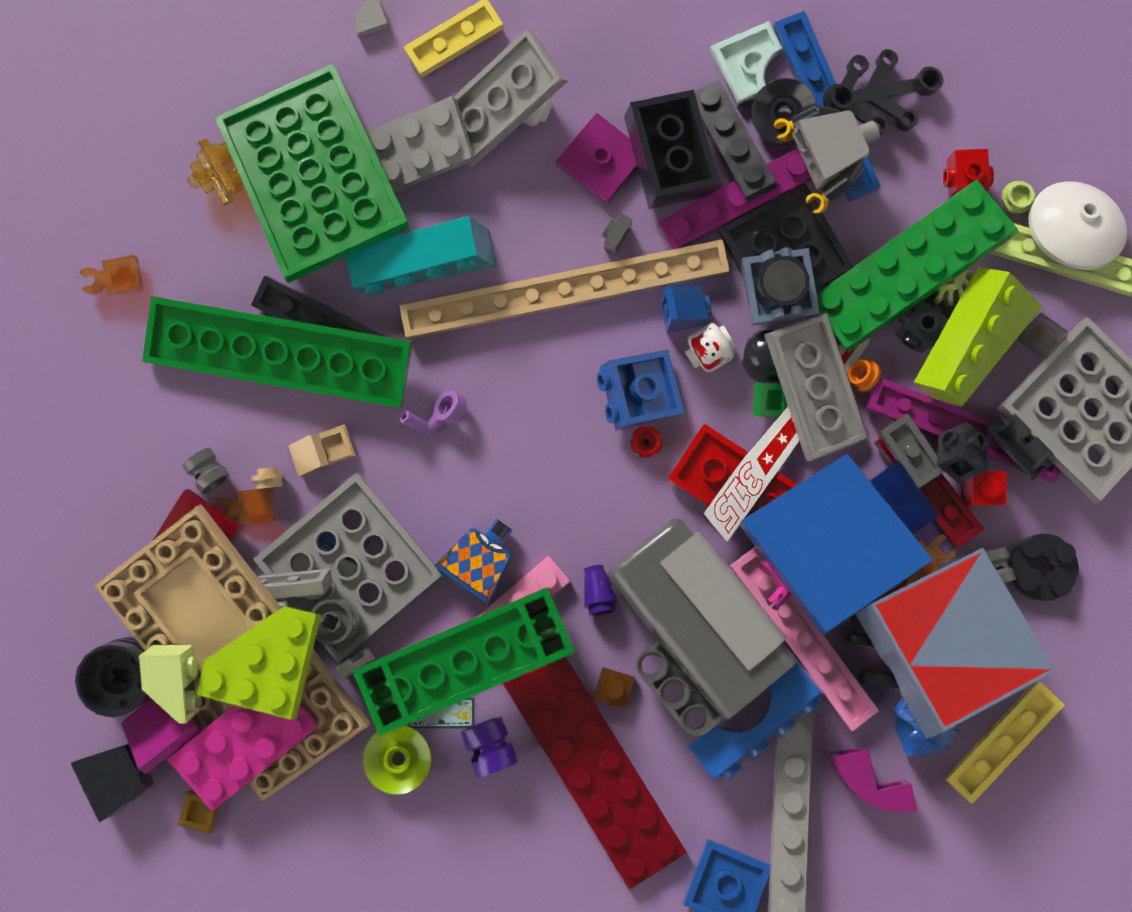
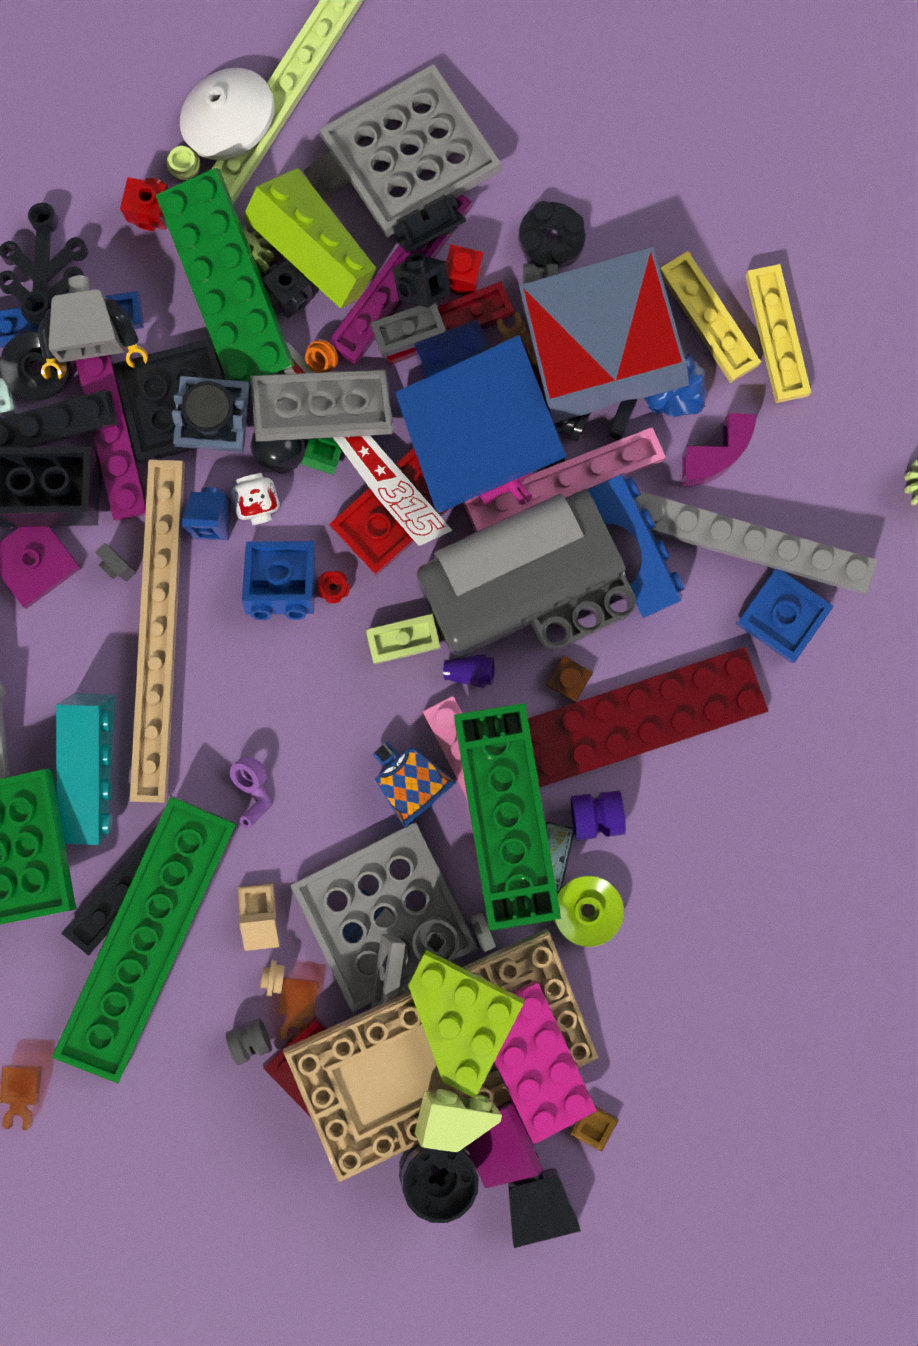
camera: 75 degrees left, 0 degrees up
(612, 520) = (403, 639): none -> yellowish green plate
(1005, 814) = (778, 333): none -> light yellow plate

